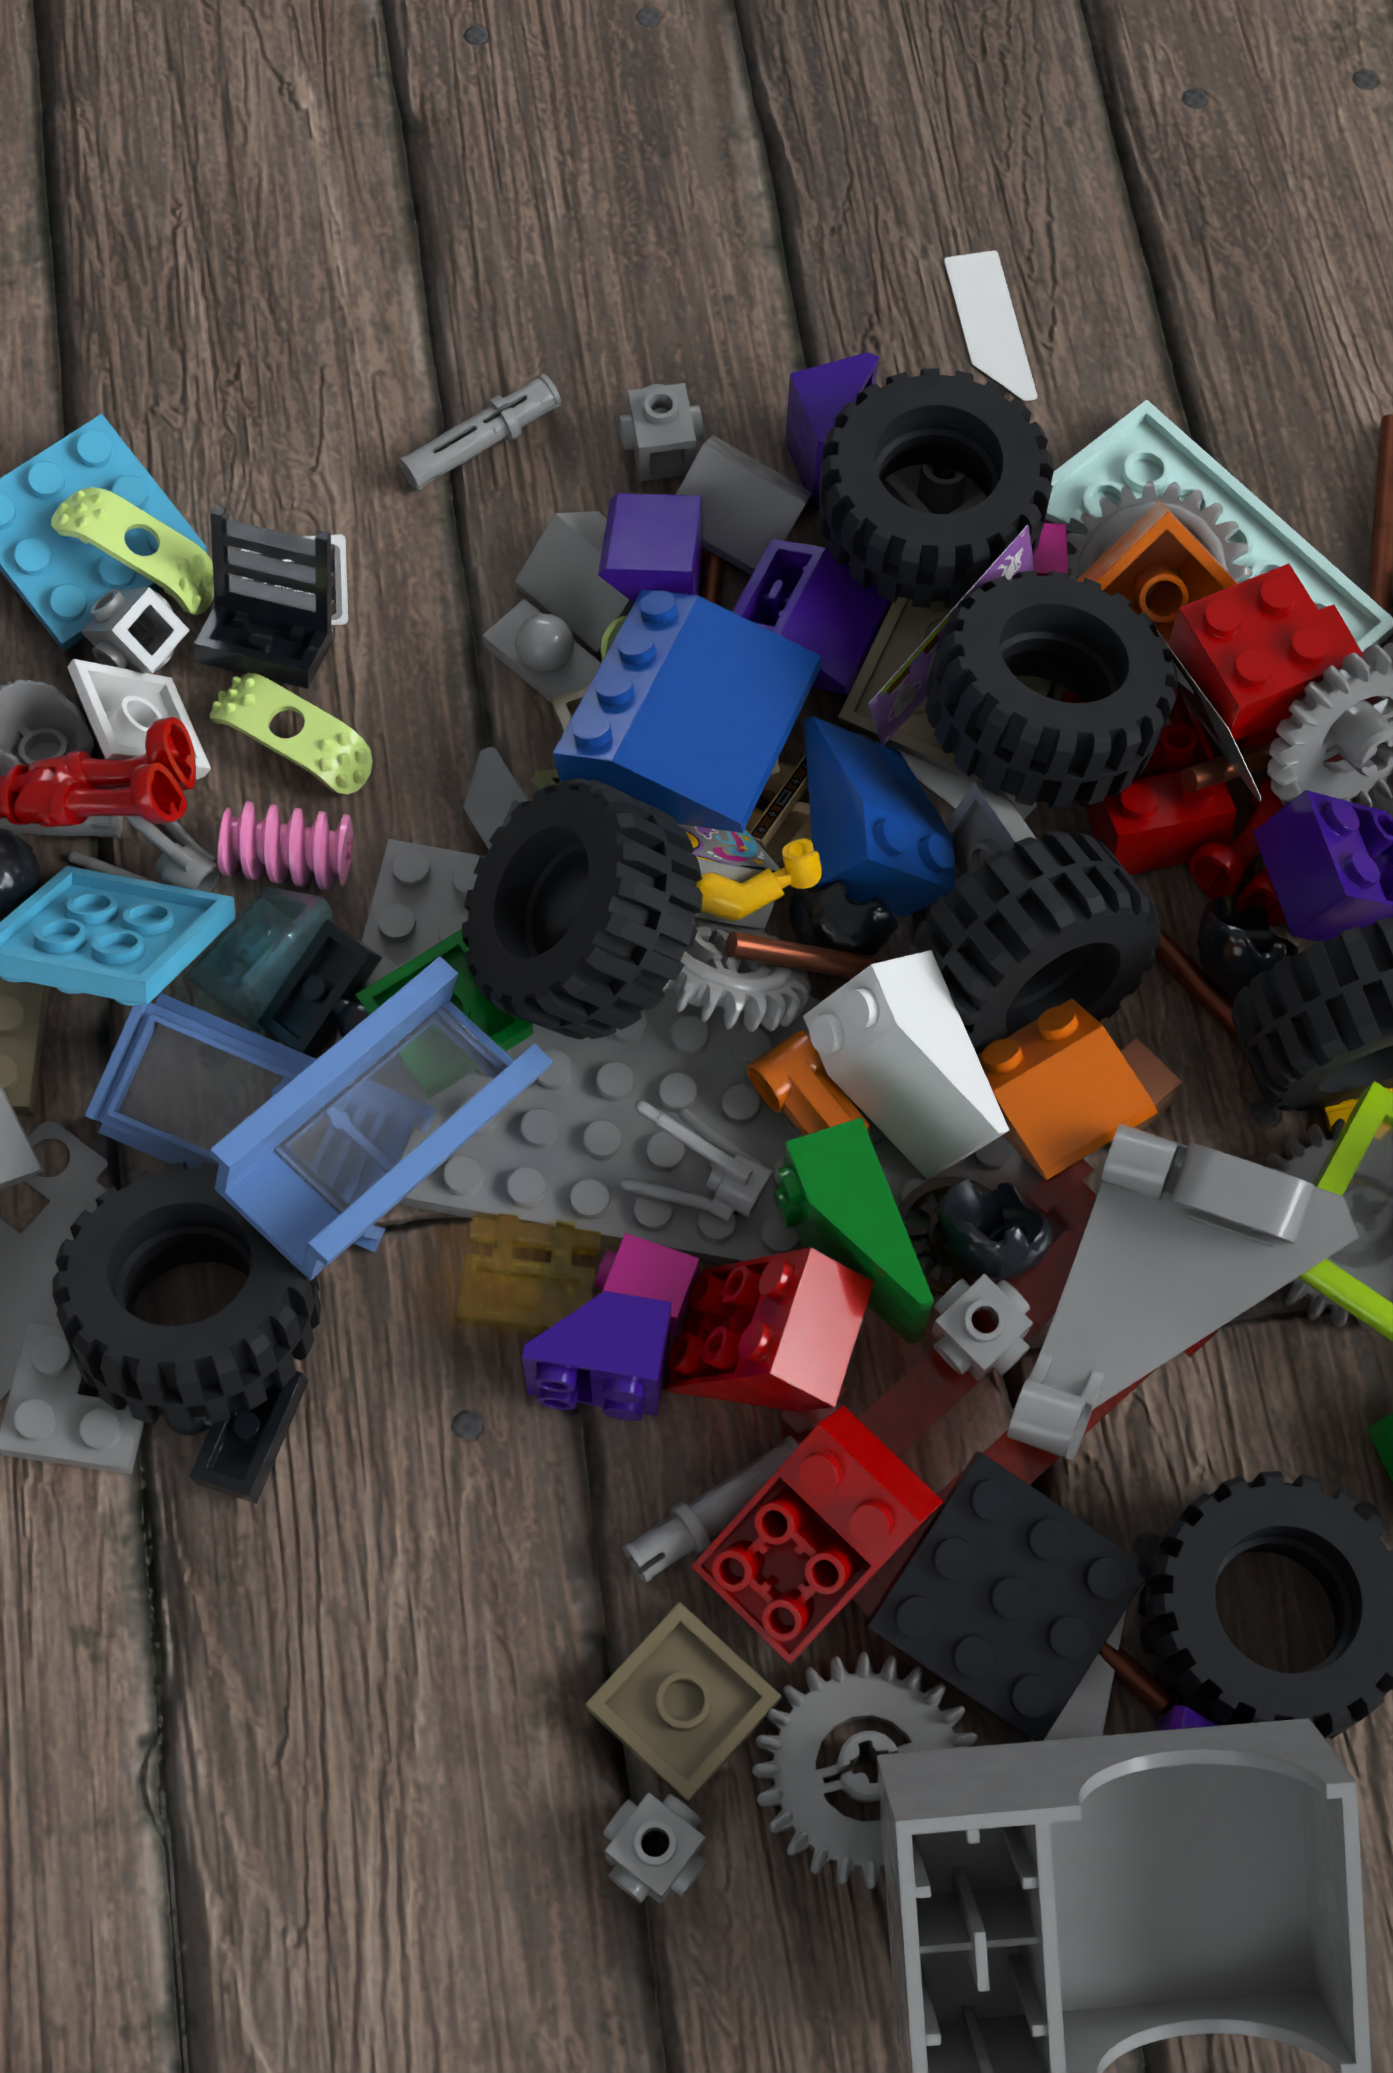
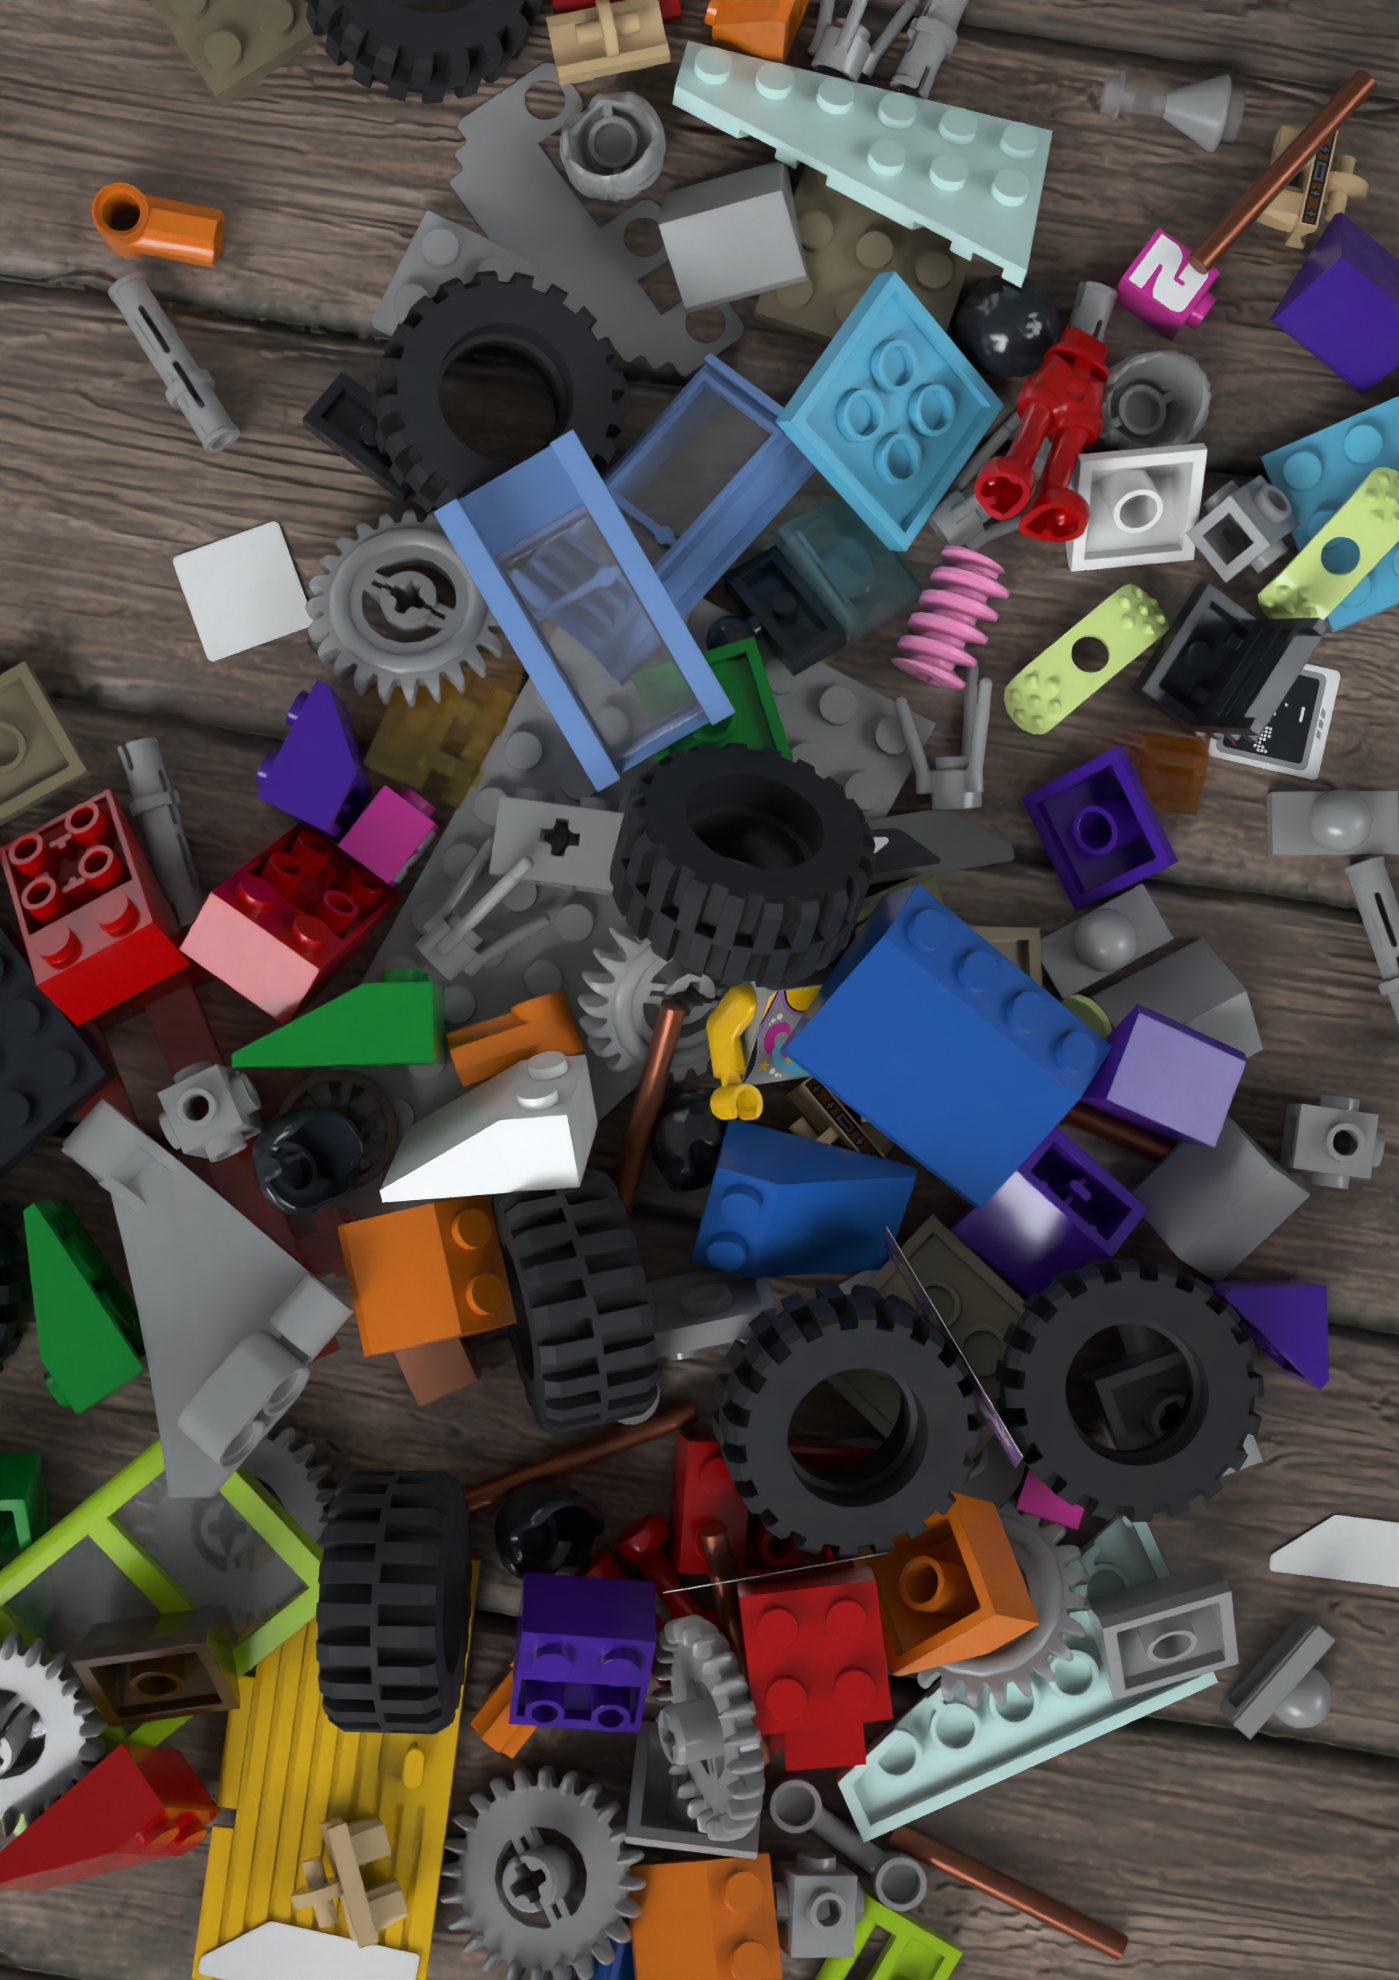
camera: 105 degrees right, 20 degrees up
(78, 1712) = (164, 227): none -> orange piece
(222, 1657) = (210, 422): none -> light grey pin
(373, 644) = (1172, 771): none -> clear orange slope
(381, 508) = (1333, 823): none -> light grey tile
(438, 803) = (957, 778): none -> light grey plant
(442, 674) = (1099, 828): none -> dark purple slope
(443, 1520) = (242, 591): none -> white sticker
(464, 1360) = (428, 641): none -> light grey gear
(616, 1074) = (532, 815): none -> light grey brick
(1116, 438) = (1165, 1630): none -> light grey slope
(1124, 357) = (1284, 1682): none -> light grey tile
(1246, 1390) = (82, 1311): none -> green slope

